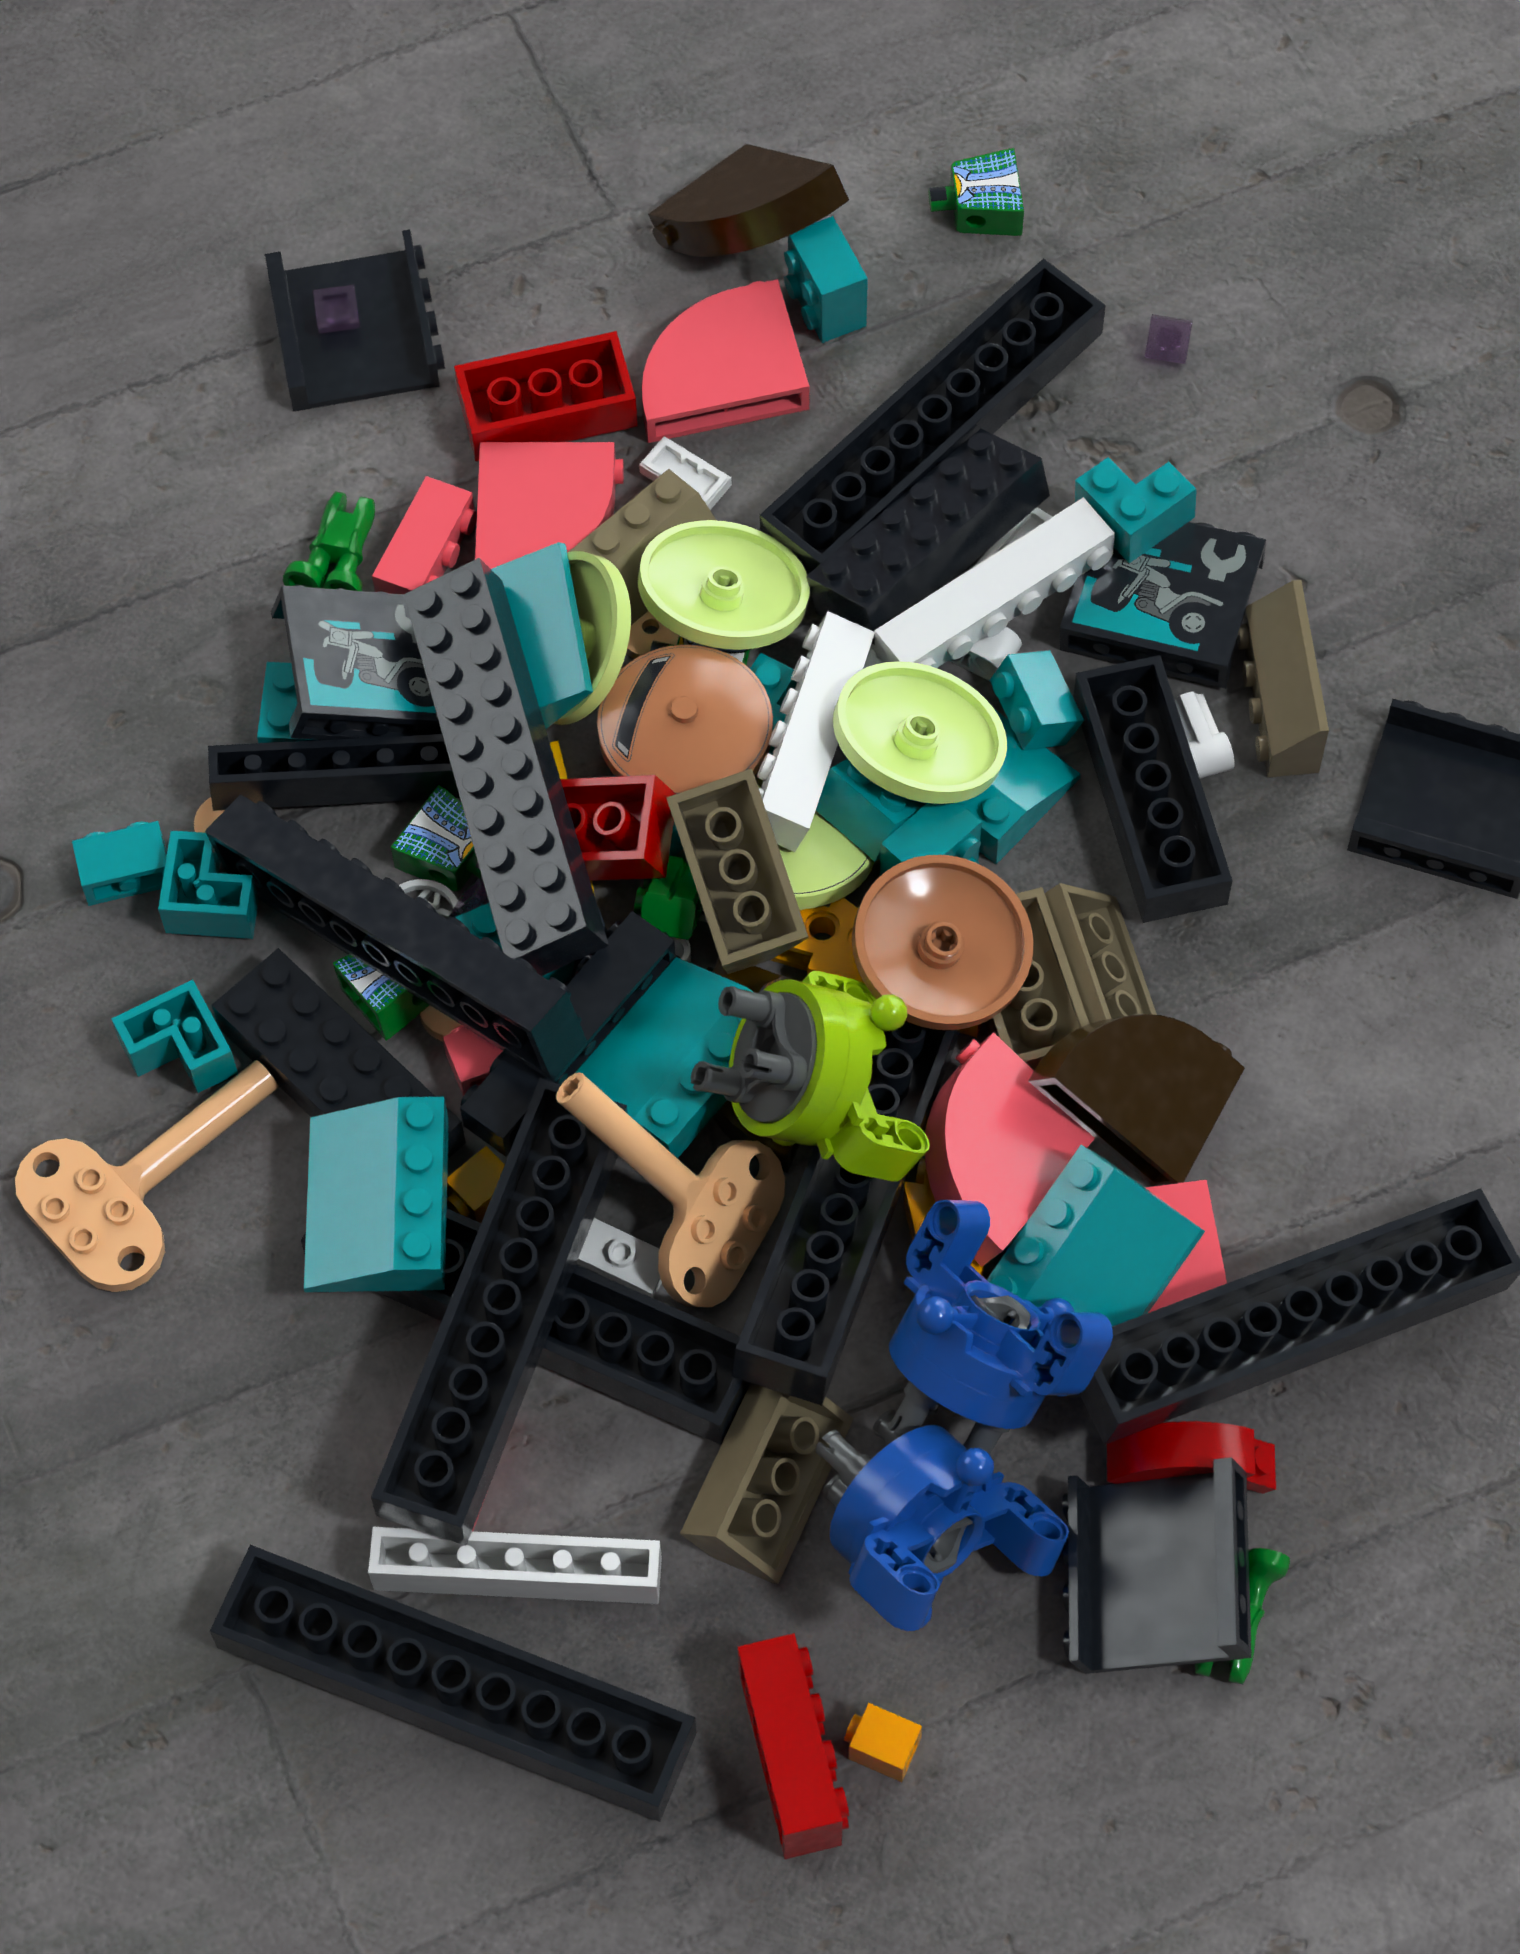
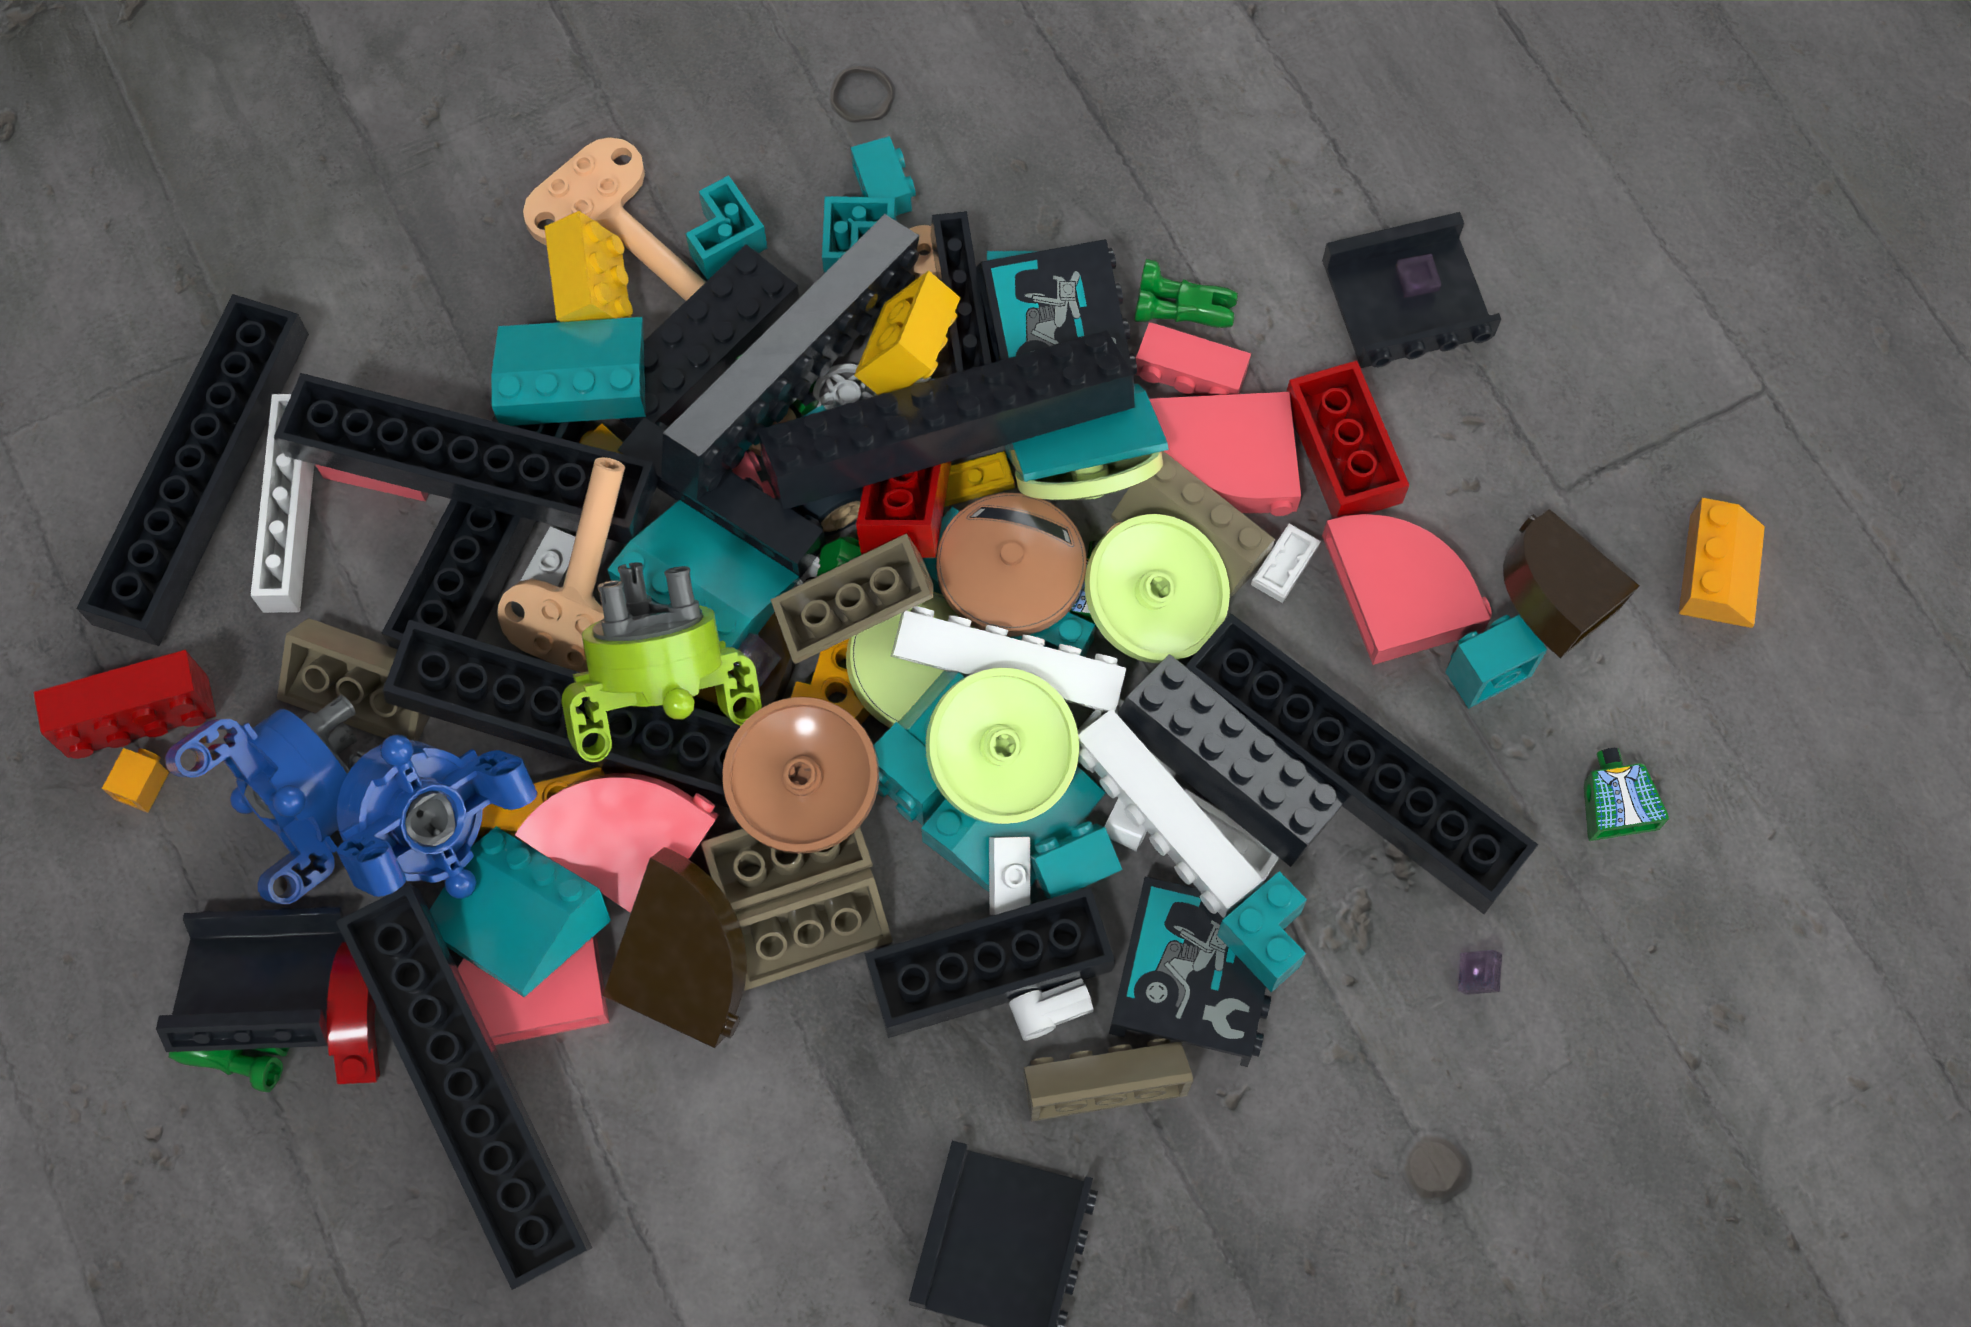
camera: 85 degrees right, 5 degrees up
(235, 1188) = (586, 270): none -> yellow brick
(384, 808) = (908, 335): none -> yellow brick
(719, 78) = (1722, 564): none -> light orange slope
(1051, 764) = (1009, 873): none -> white plate

